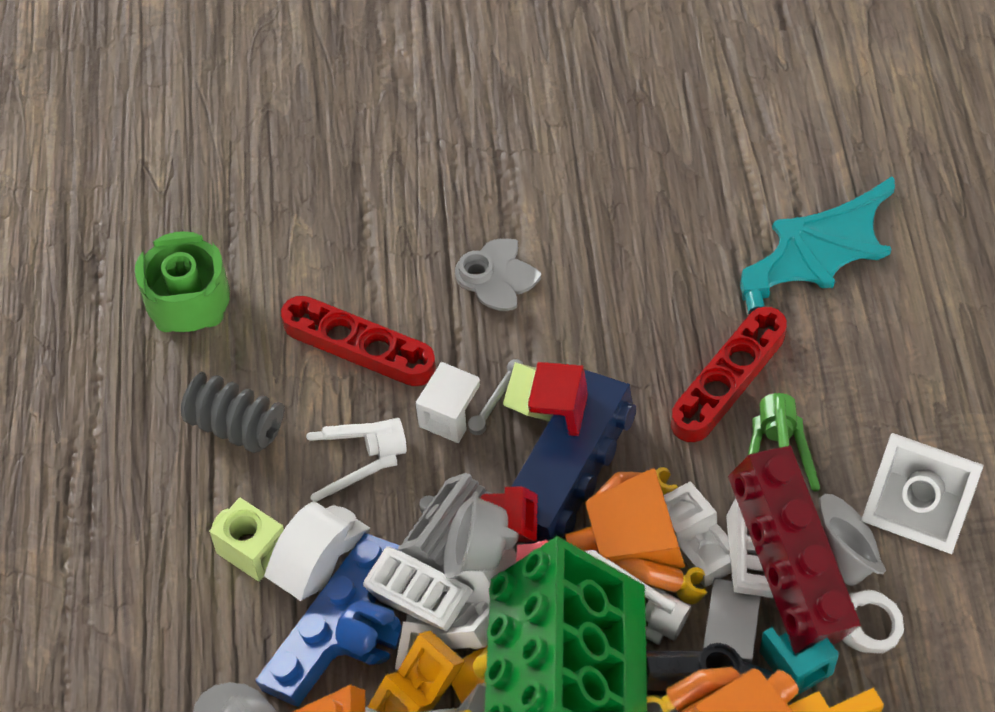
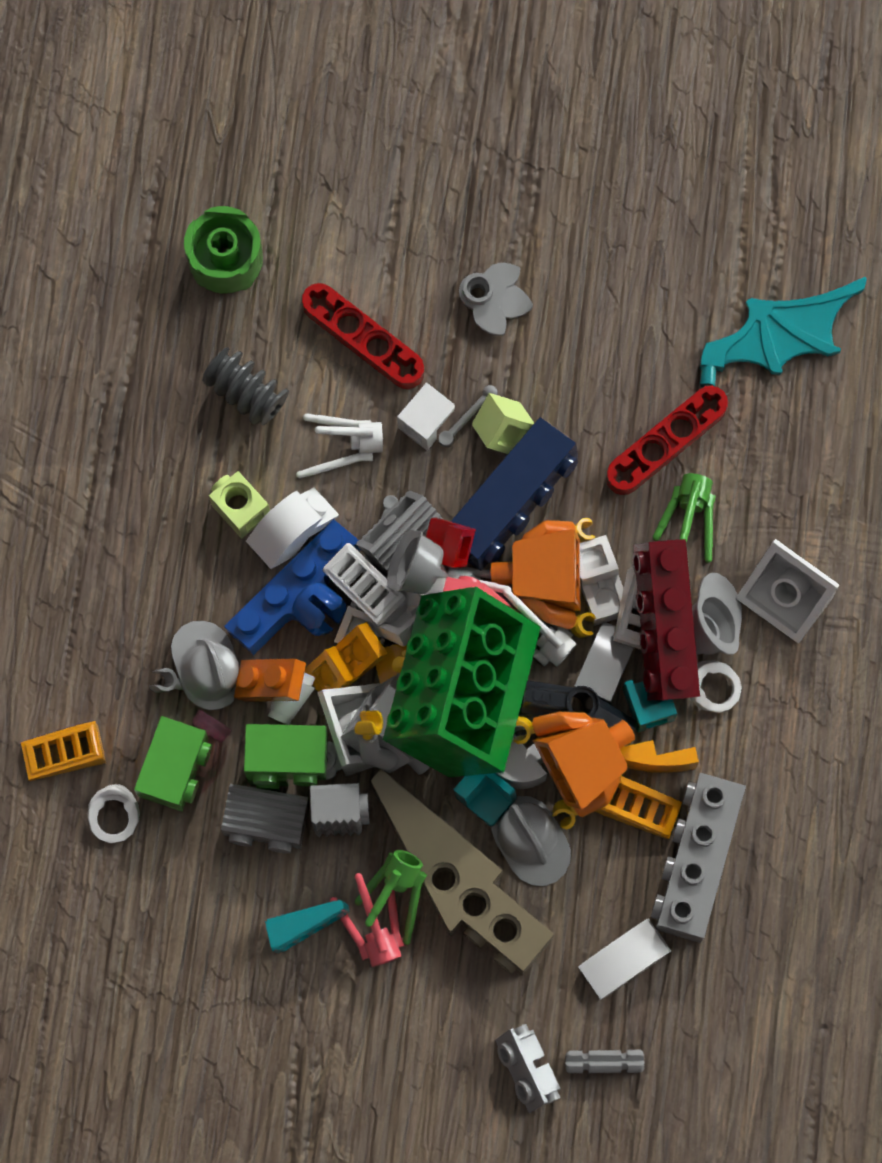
camera: 10 degrees right, 20 degrees up
(560, 391) = (513, 445): red panel -> none

